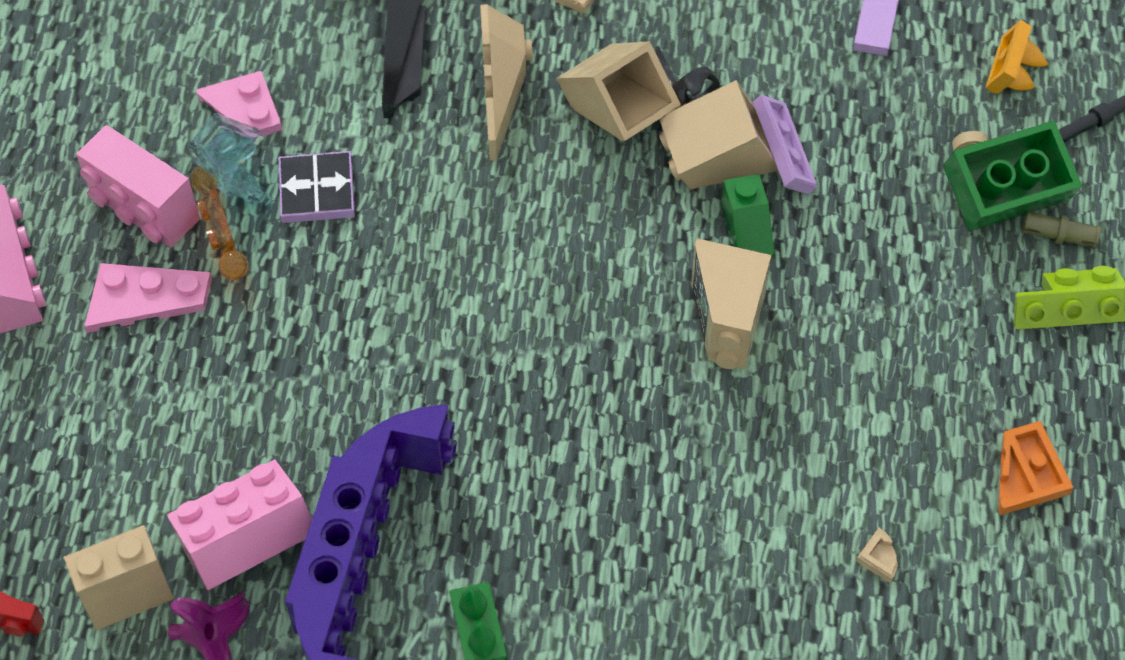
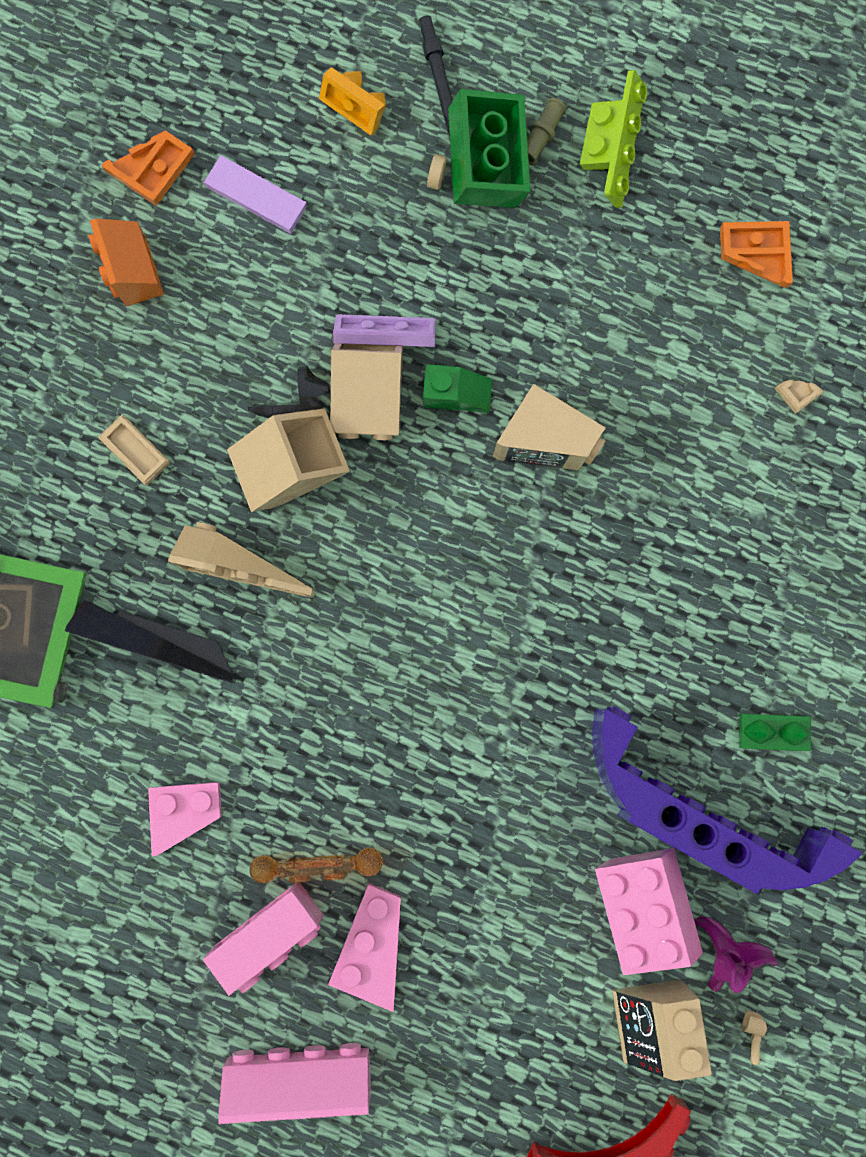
camera: 80 degrees left, 25 degrees up
(222, 150) = (267, 845): clear light blue bracket -> none
(316, 187) = (298, 765): black tile -> none

